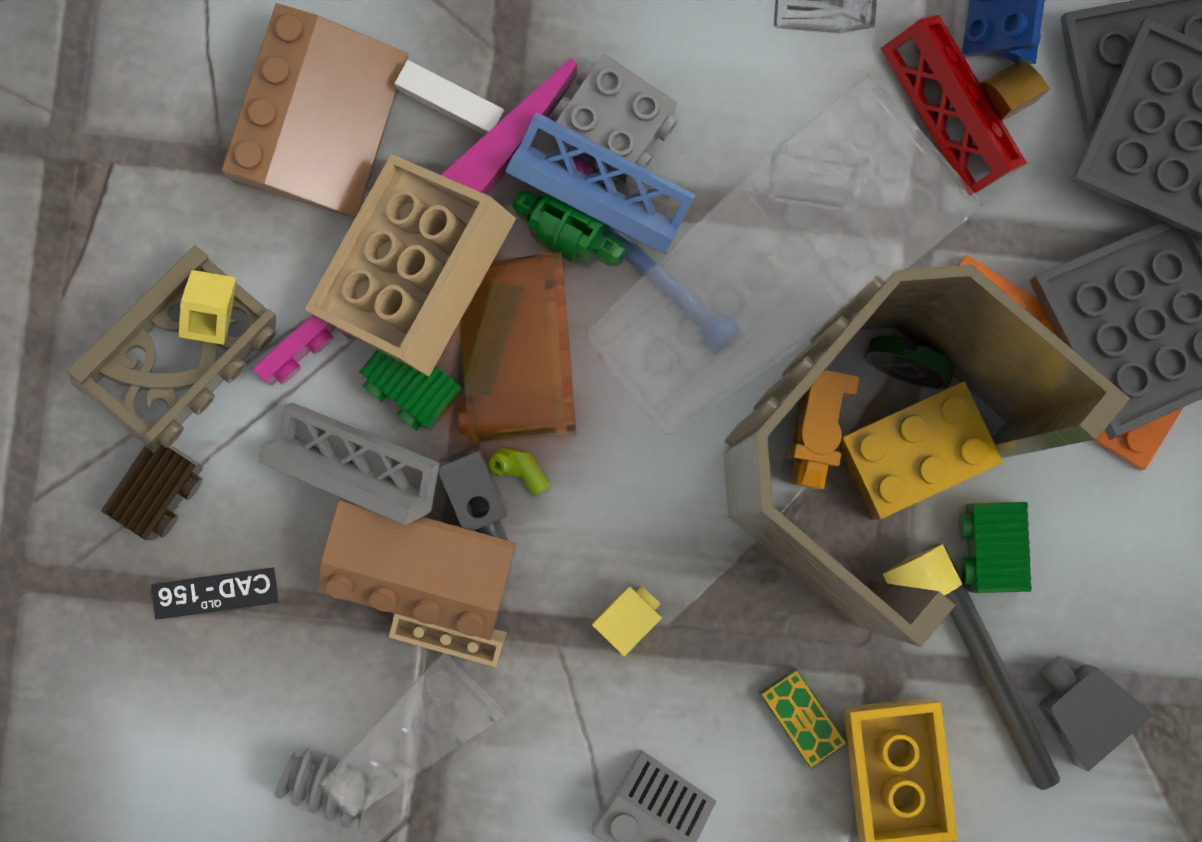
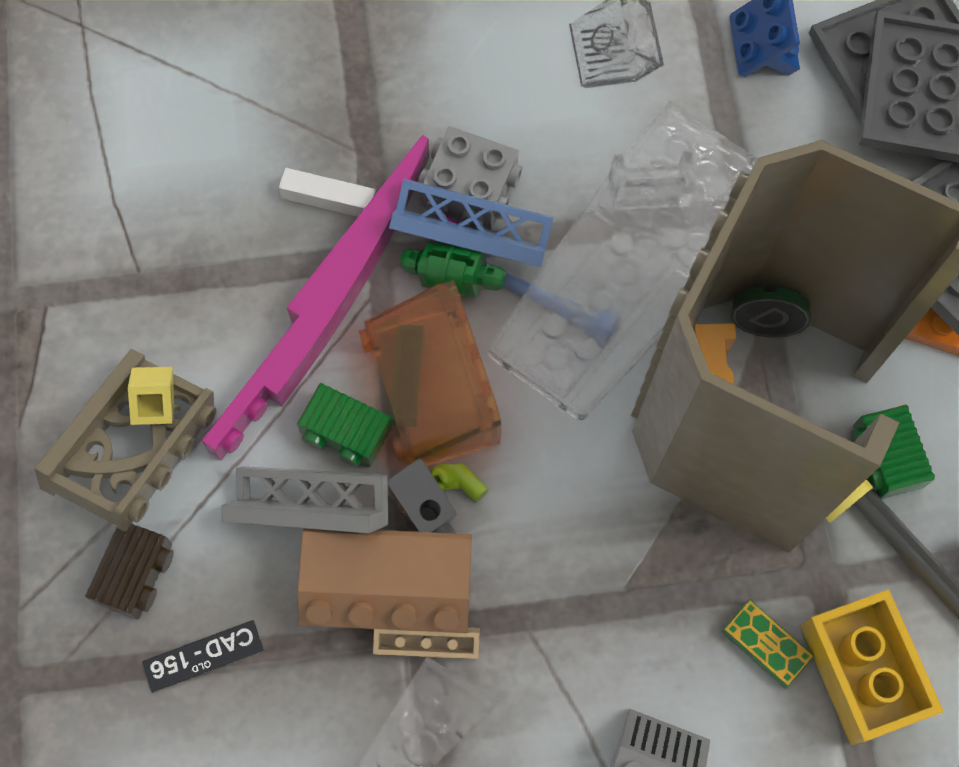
camera: 10 degrees left, 15 degrees down
(314, 112) = (214, 226): medium nougat slope -> none
(411, 263) = (325, 319): tan slope -> none
(628, 618) = (586, 587): light yellow brick -> none
(919, 451) = (810, 373): yellow brick -> none
(966, 96) = (744, 96): red fence -> none
(1014, 88) = (789, 90): pearl gold brick -> none

